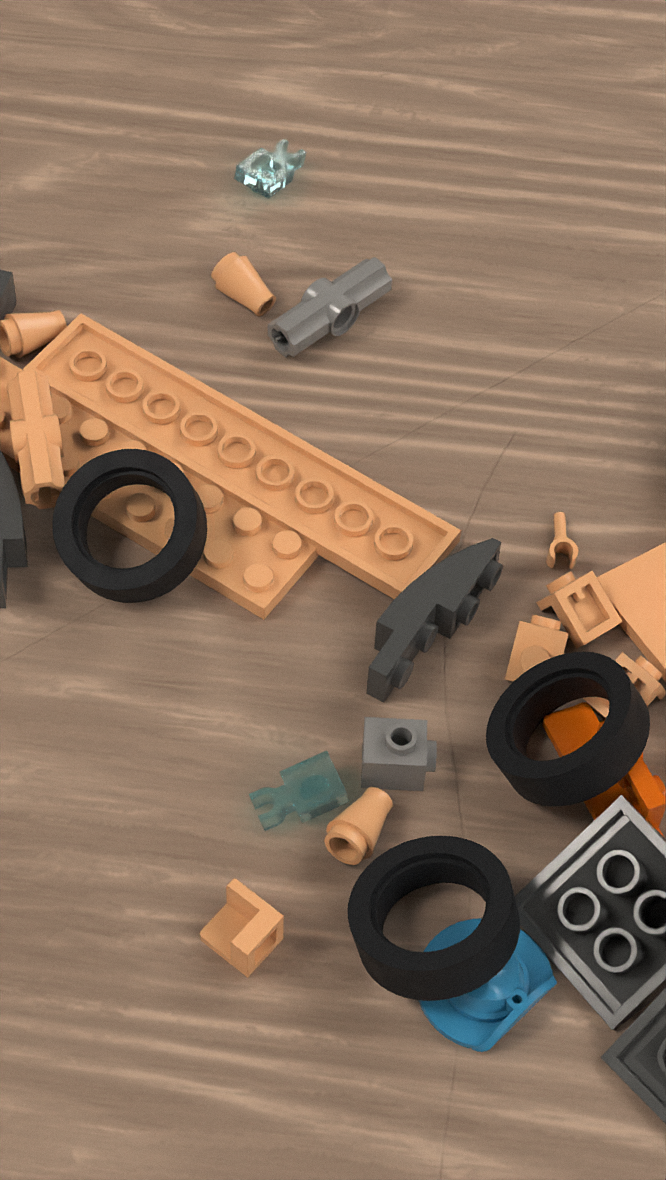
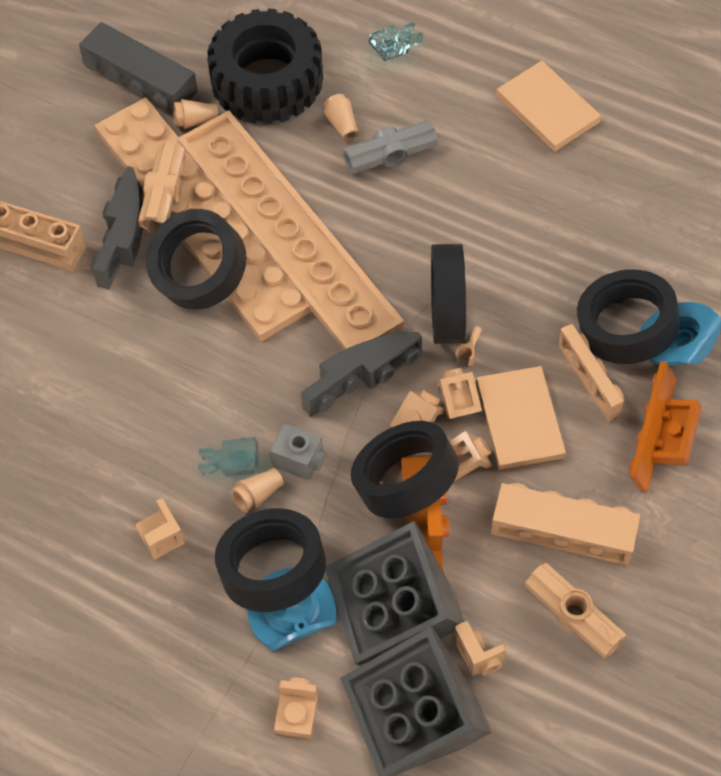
camera: 25 degrees right, 5 degrees up
(107, 200) = (265, 37): none -> black tyre
(514, 203) = (548, 106): none -> light nougat tile
(517, 472) = (448, 293): none -> black tyre
(561, 1122) = (296, 708): none -> light nougat bracket

